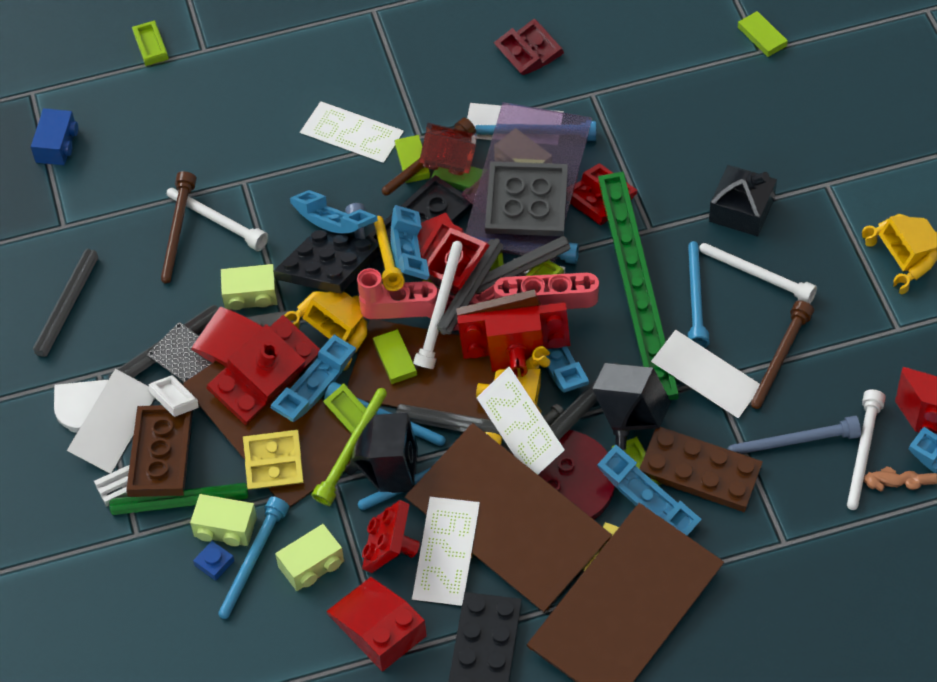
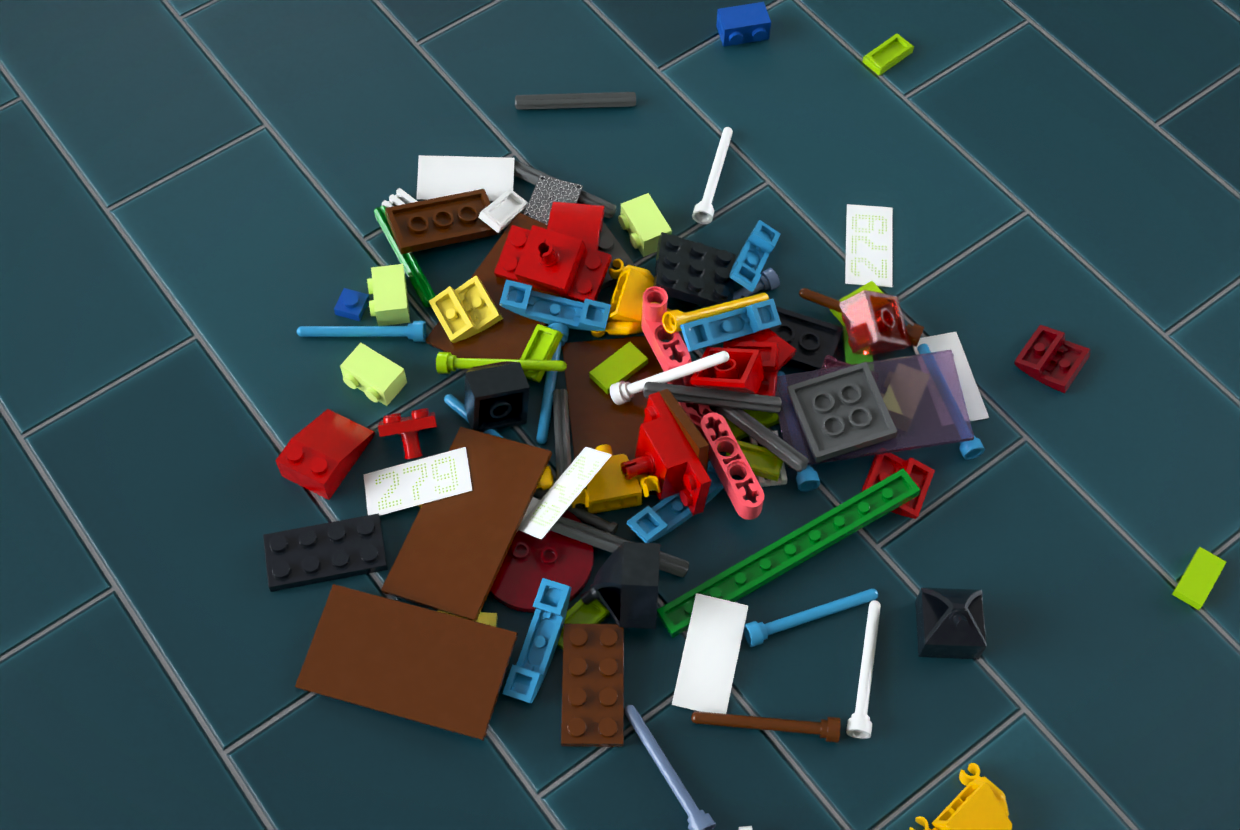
camera: 65 degrees right, 5 degrees up
(75, 402) = (475, 143): white tile -> none
(185, 184) = (735, 135): reddish brown piece -> none

